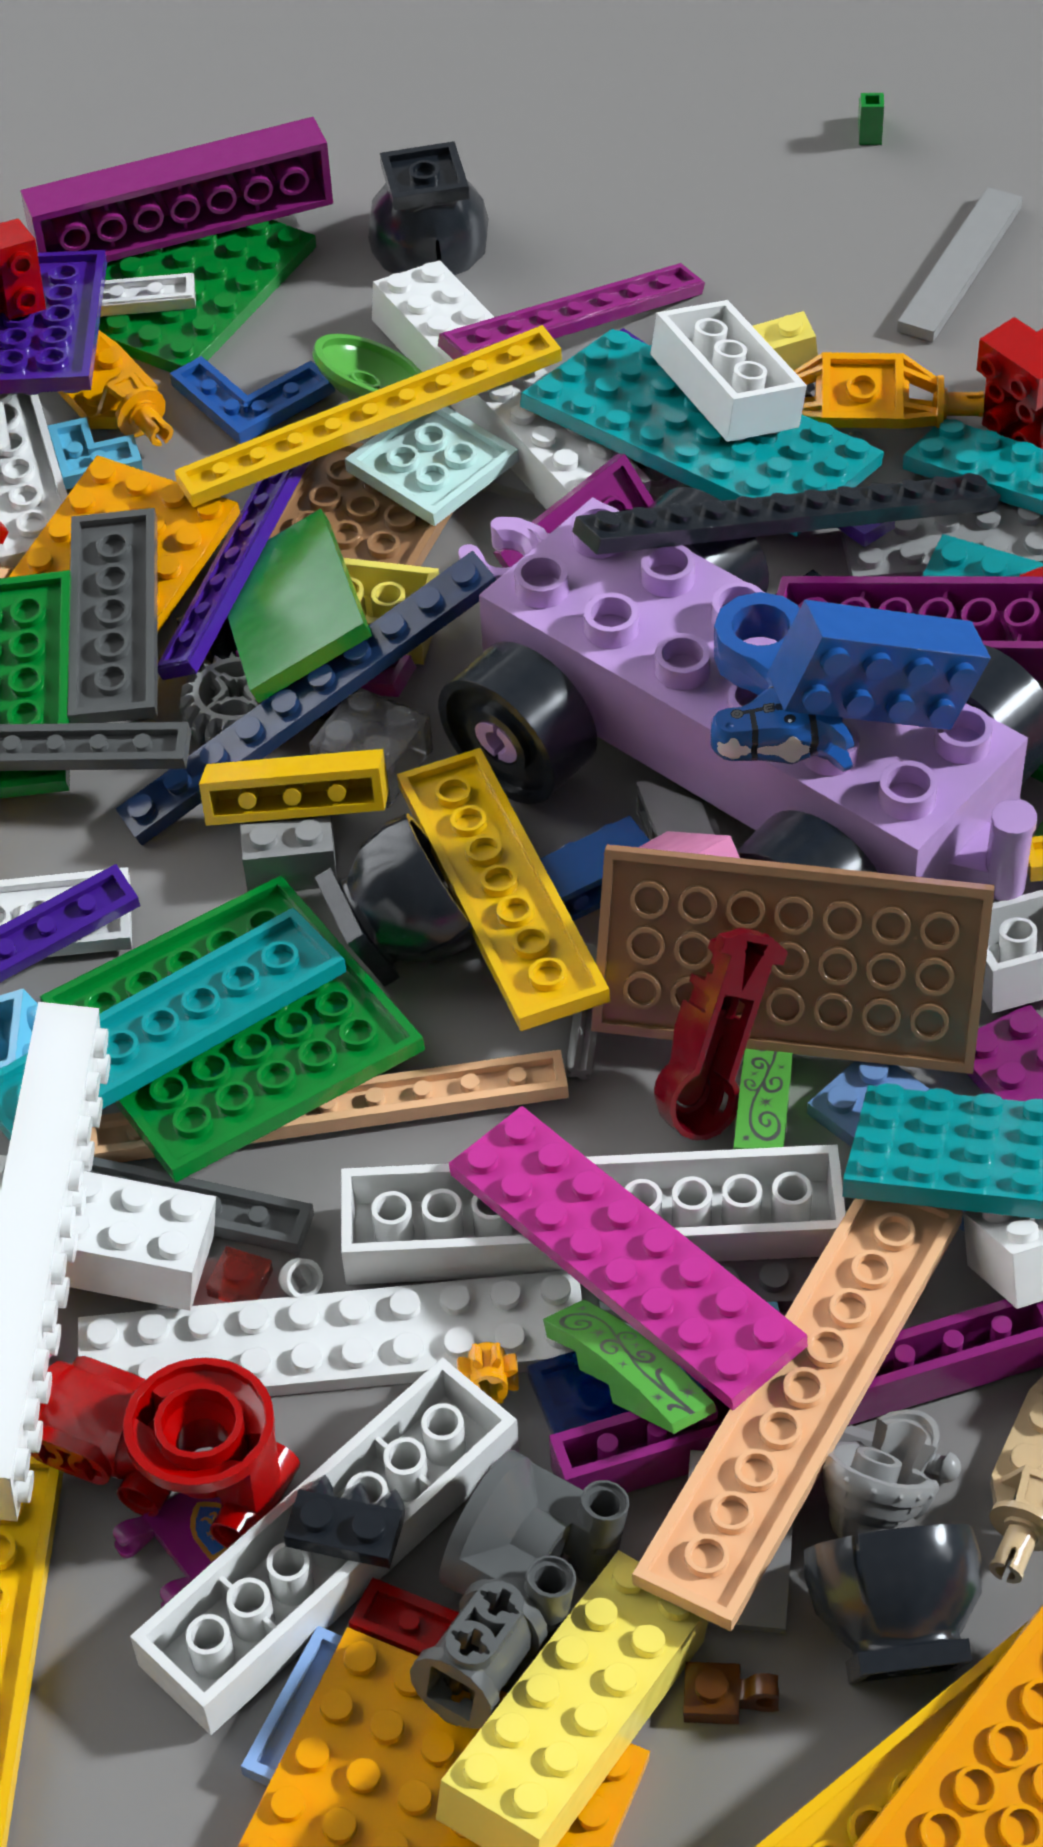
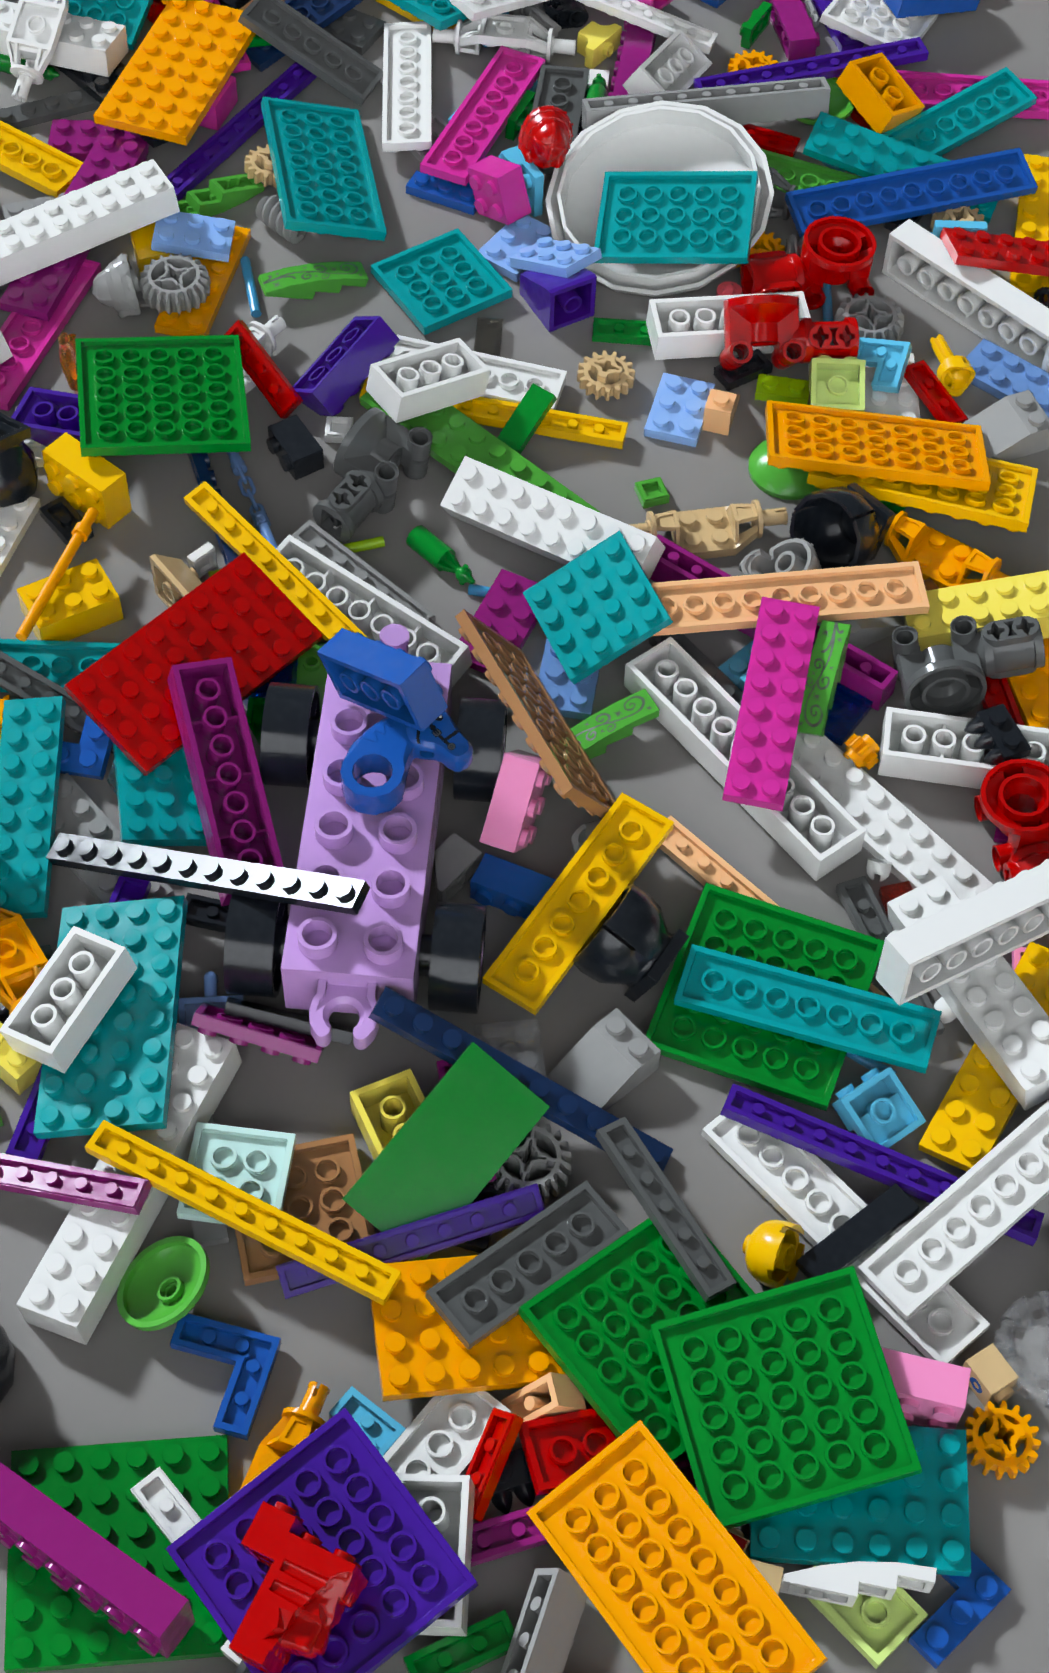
camera: 130 degrees left, 5 degrees up
(294, 787) = (591, 1050): yellow brick -> none
(712, 1038) = (605, 738): dark red piece -> none
(760, 1762) = (939, 555): none -> light orange plate

